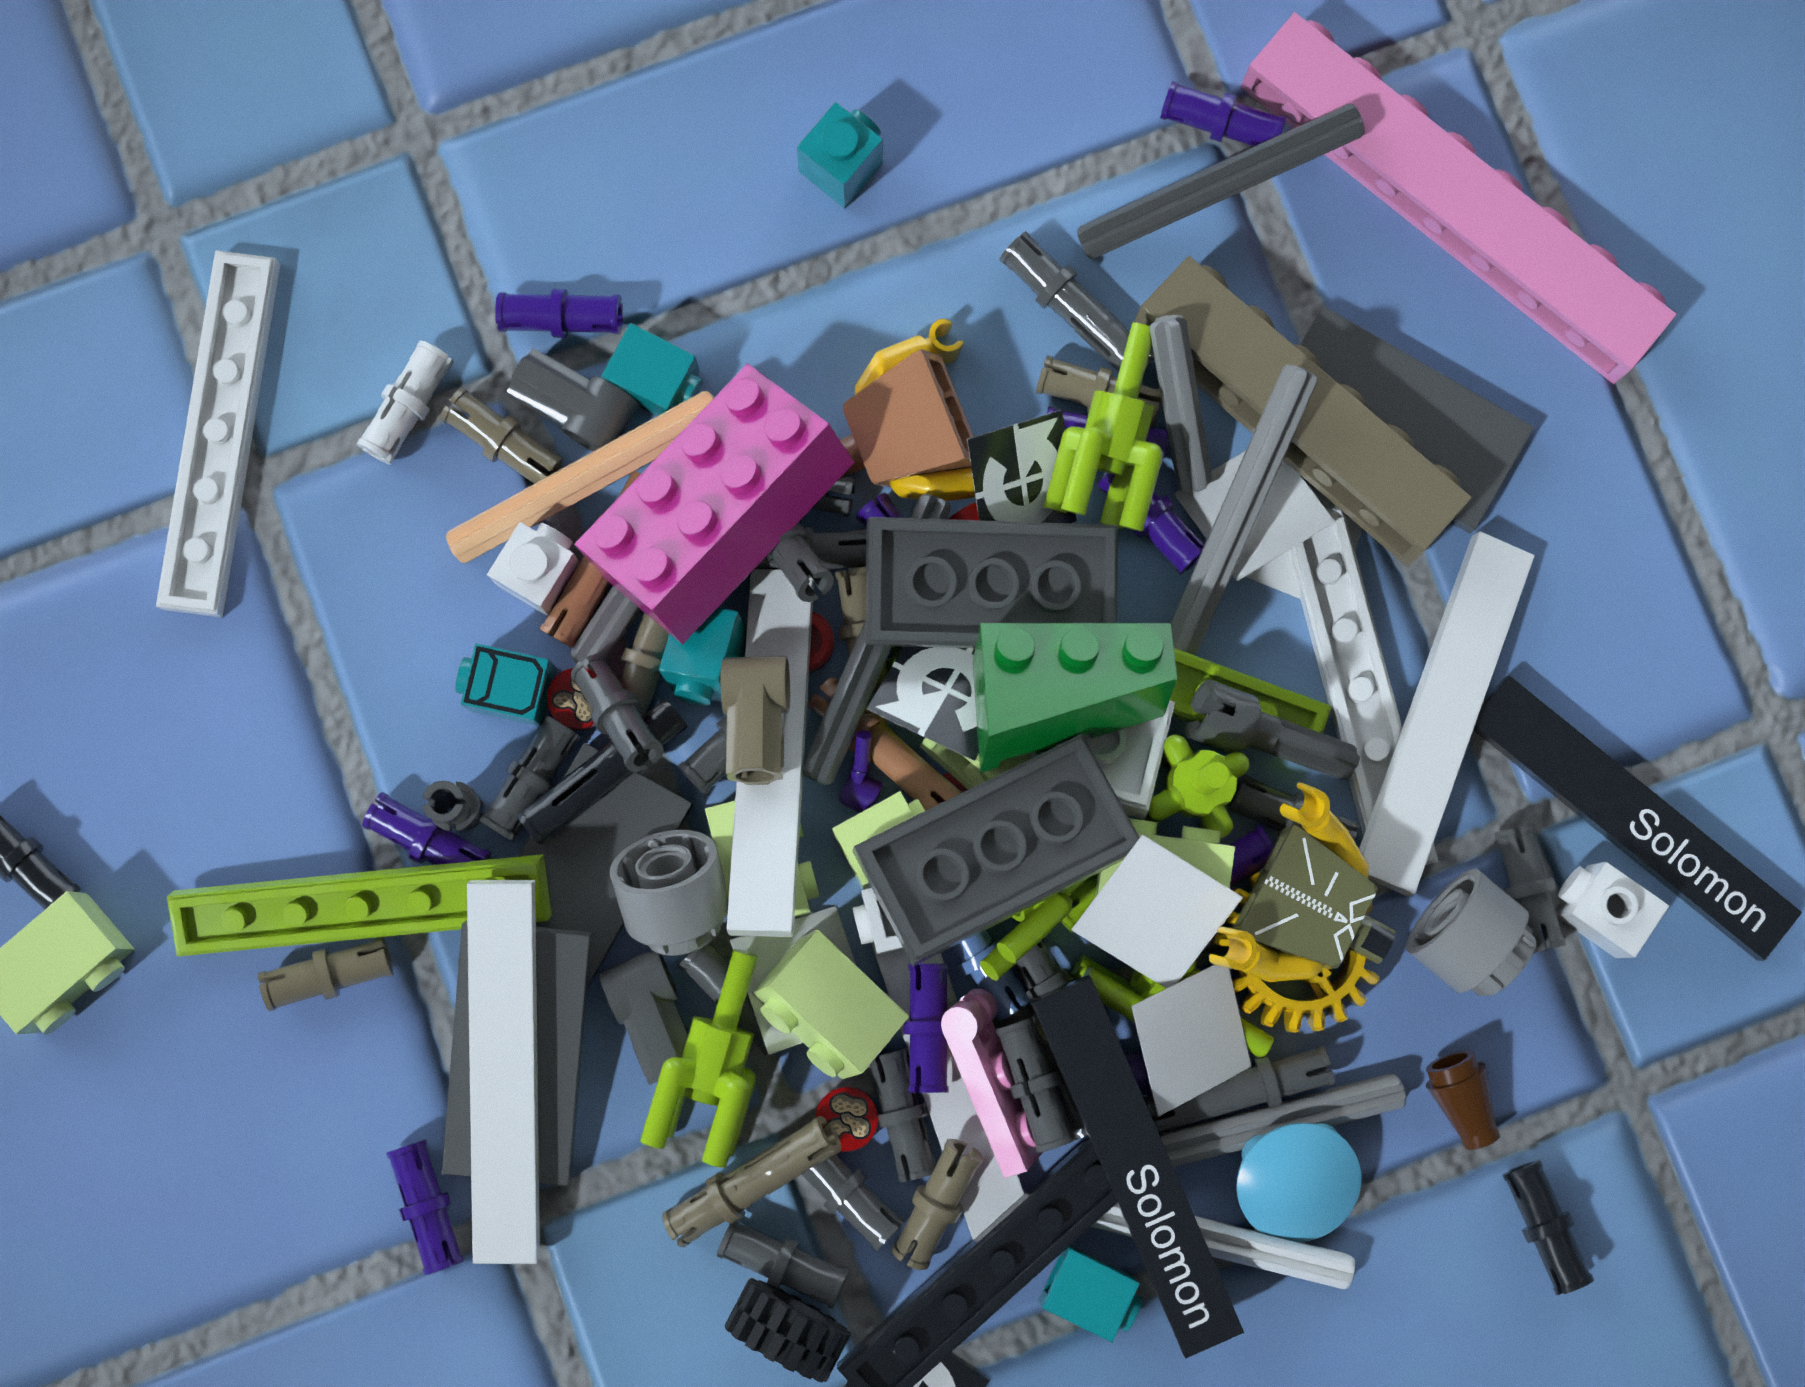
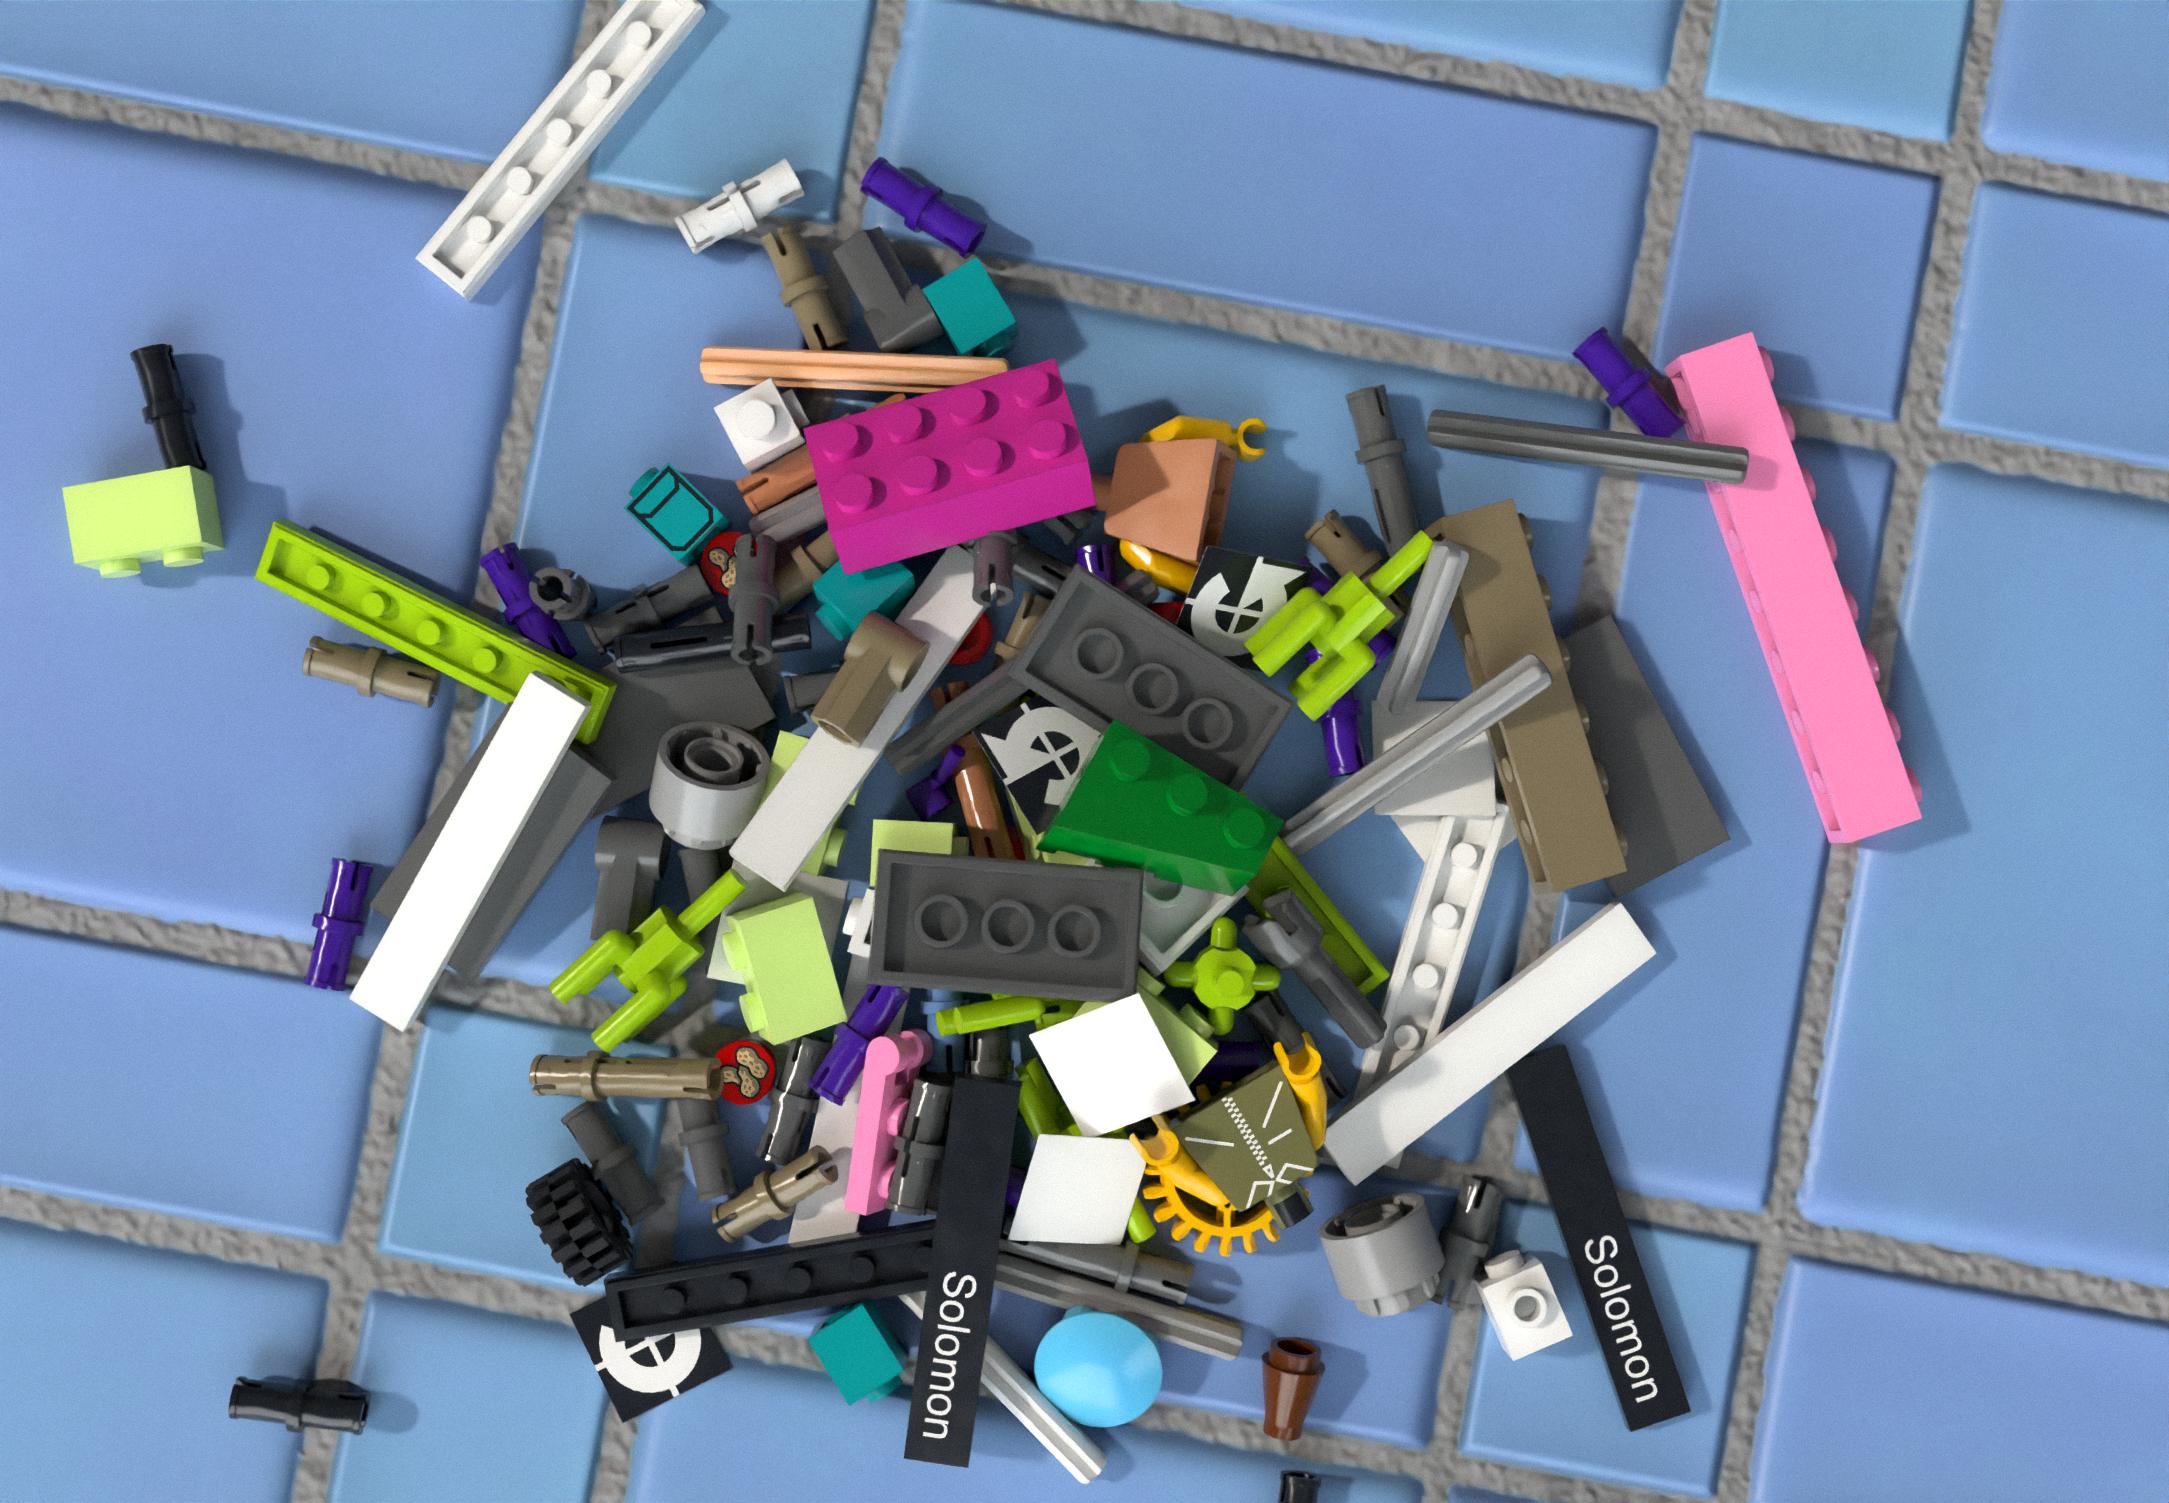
camera: 35 degrees right, 5 degrees up
(841, 153) = (1262, 213): teal brick -> none

